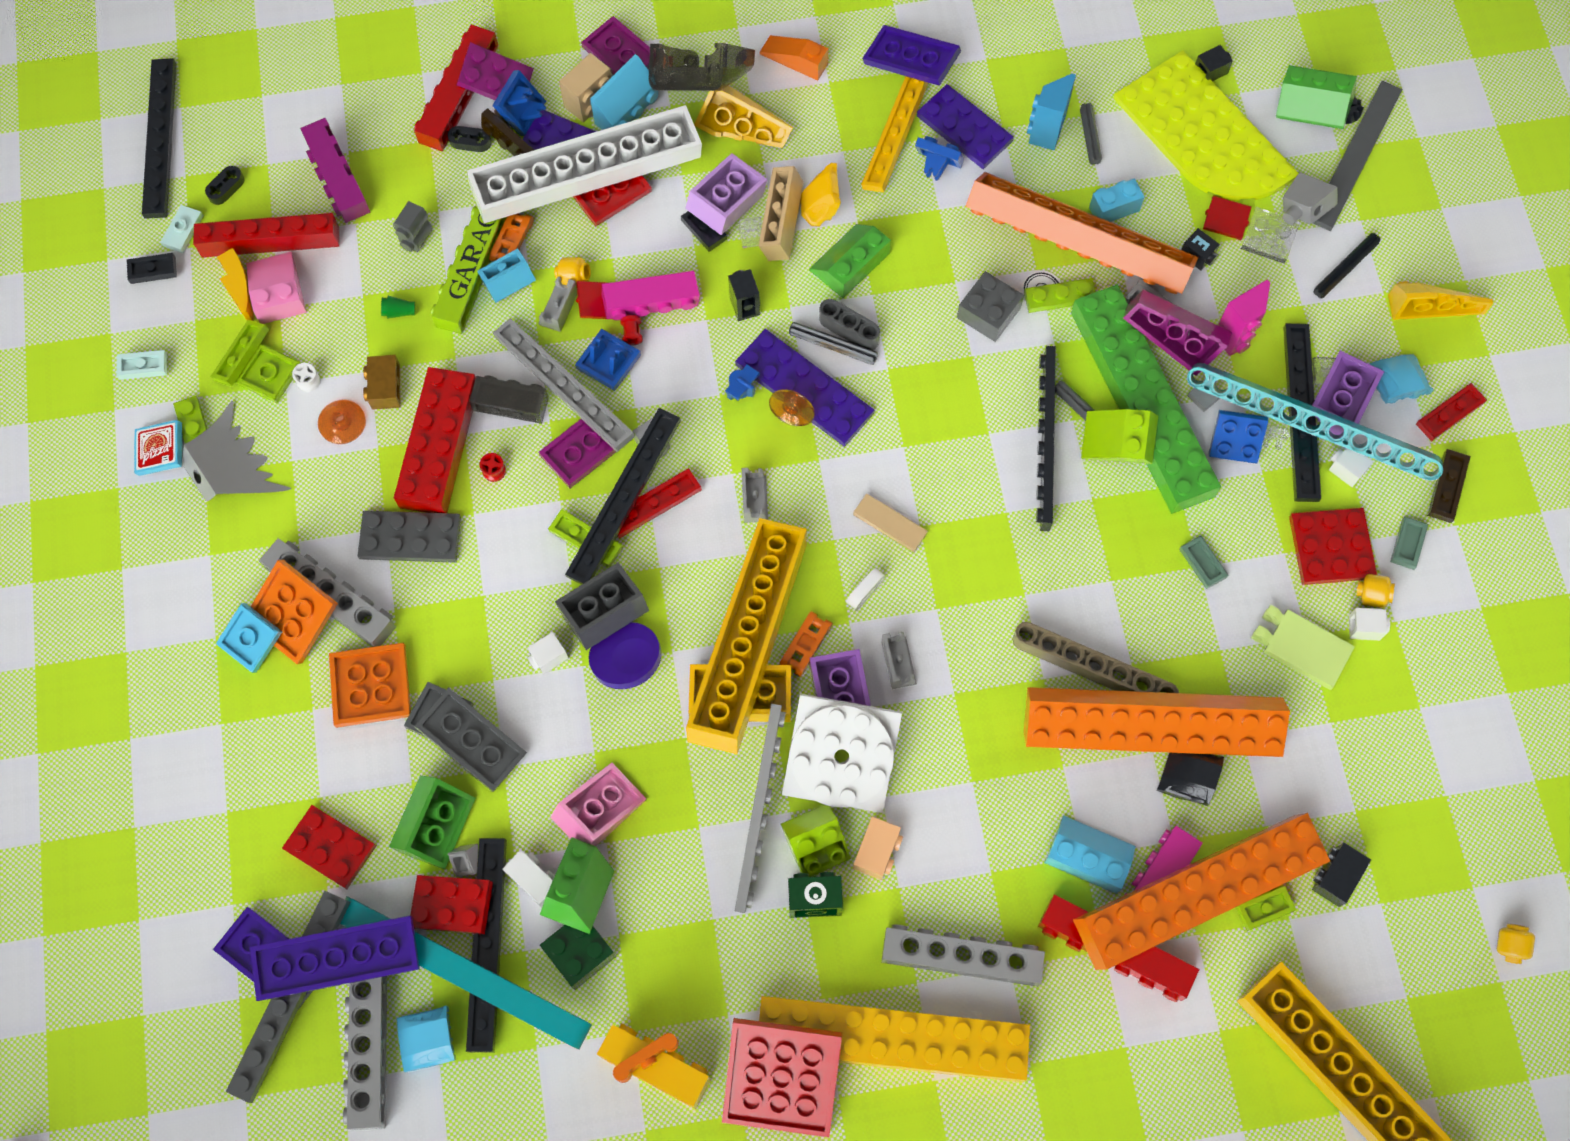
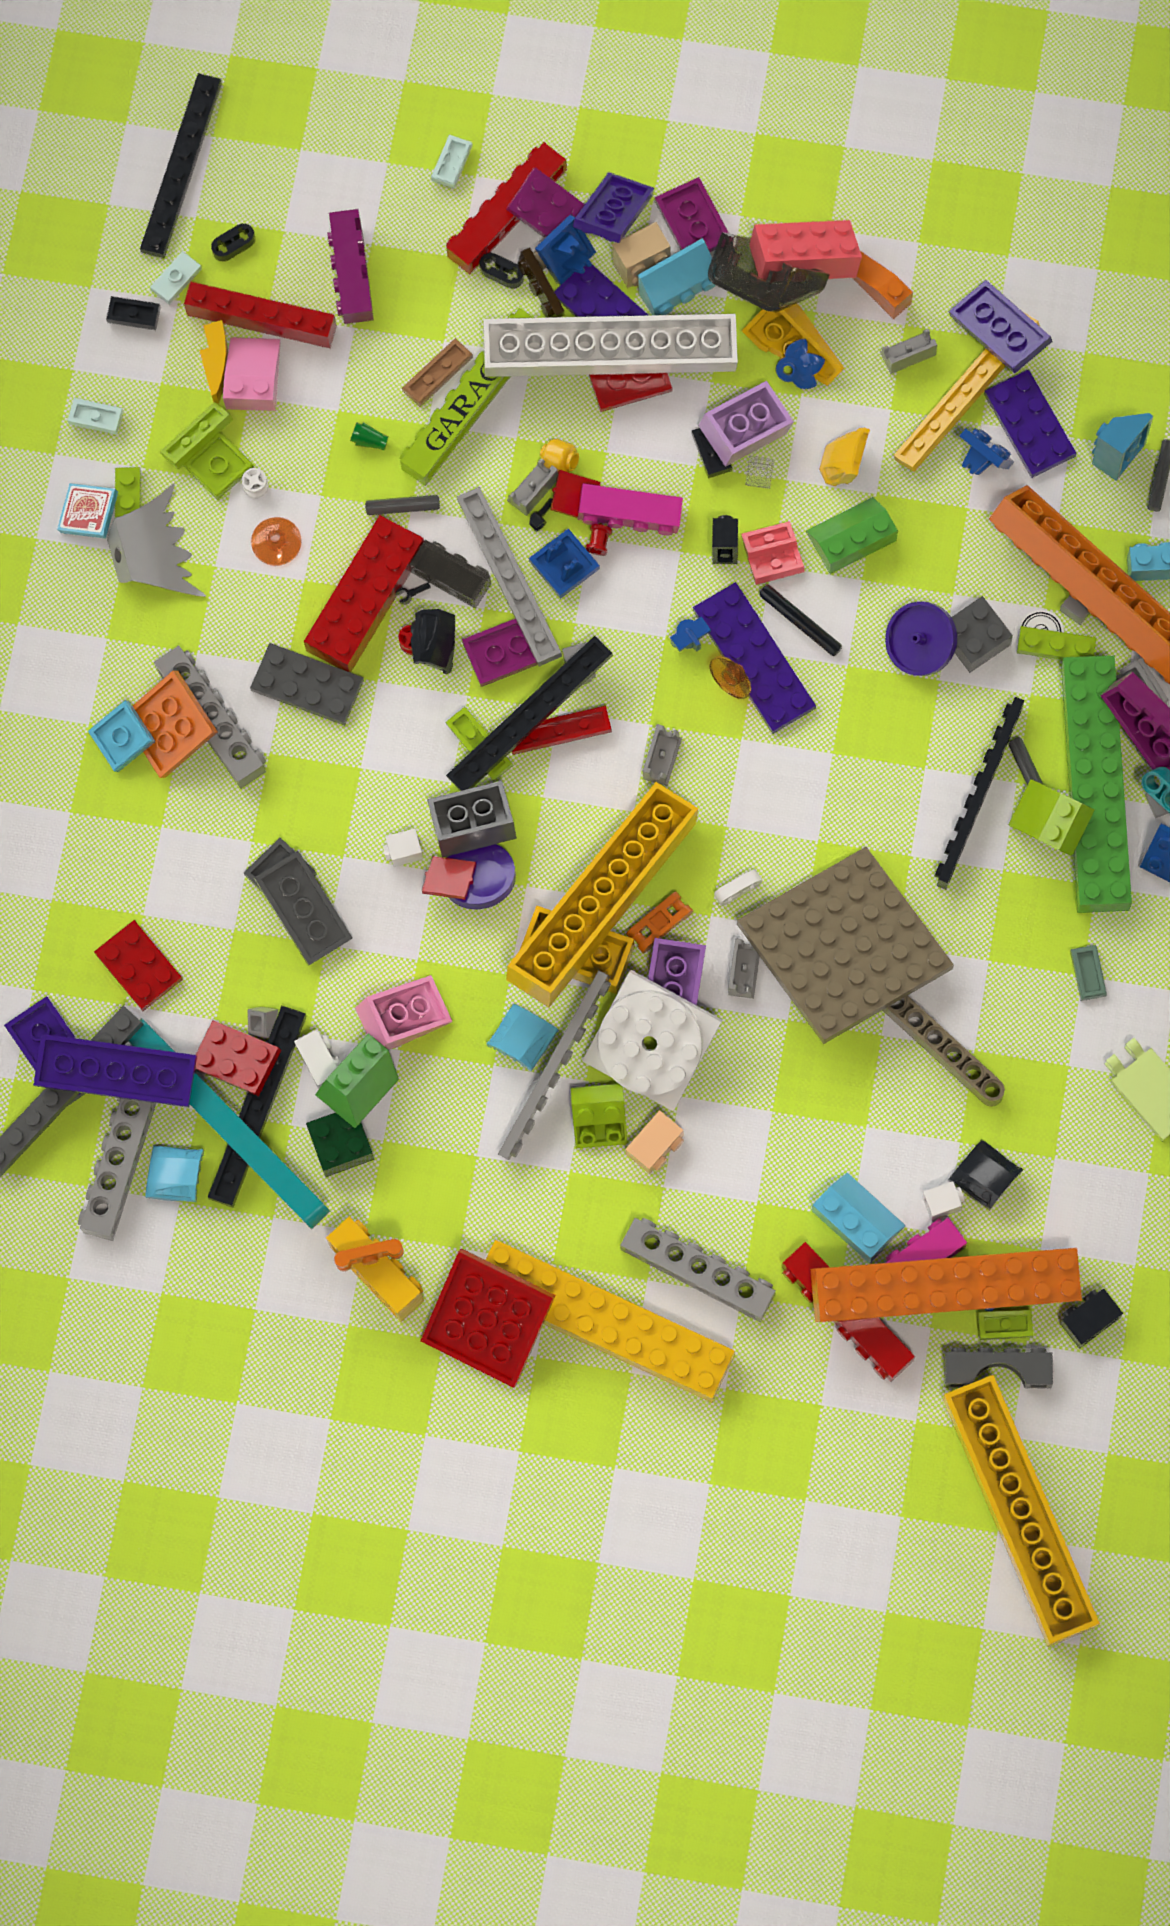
camera: 25 degrees right, 5 degrees up
(369, 685) = (223, 821): orange plate -> none
(382, 382) = (330, 514): pearl gold brick -> none
(396, 65) = (451, 161): none -> light aqua plate
(412, 227) = (410, 356): dark grey brick -> none
(432, 821) = (242, 974): bright green slope -> none
(440, 237) = (437, 372): none -> medium nougat tile
(446, 355) = (402, 505): none -> dark grey axle
(479, 427) = (412, 592): none -> black hand
(506, 276) = (490, 439): medium azure brick -> none
(511, 236) = (509, 398): orange plate -> none
(513, 458) = (433, 639): none -> black slope
(549, 56) = (613, 207): none -> dark purple plate
(571, 331) = (537, 521): none -> black hand
(599, 666) = (449, 877): none -> piece
(717, 791) = (523, 1037): none -> medium azure slope
(742, 30) = (806, 245): none -> coral brick
(756, 133) = (802, 363): none -> blue plate
(781, 213) = (796, 462): tan brick -> none
(788, 295) = (772, 553): none -> coral slope
(815, 895) = (578, 1165): dark green brick -> none
(842, 100) = (909, 352): none -> light grey hinge
(844, 315) = (821, 595): dark grey beam -> none
(890, 523) = (788, 828): tan tile -> none
(945, 323) = (921, 638): none -> dark purple piece
(983, 608) = (845, 945): none -> dark tan plate
(1065, 260) = (1074, 609): none -> light grey slope
(1156, 722) = (968, 1113): orange brick -> none
(1162, 811) = (943, 1200): none -> white brick
(1307, 942) = (1032, 1367): none -> dark grey arch

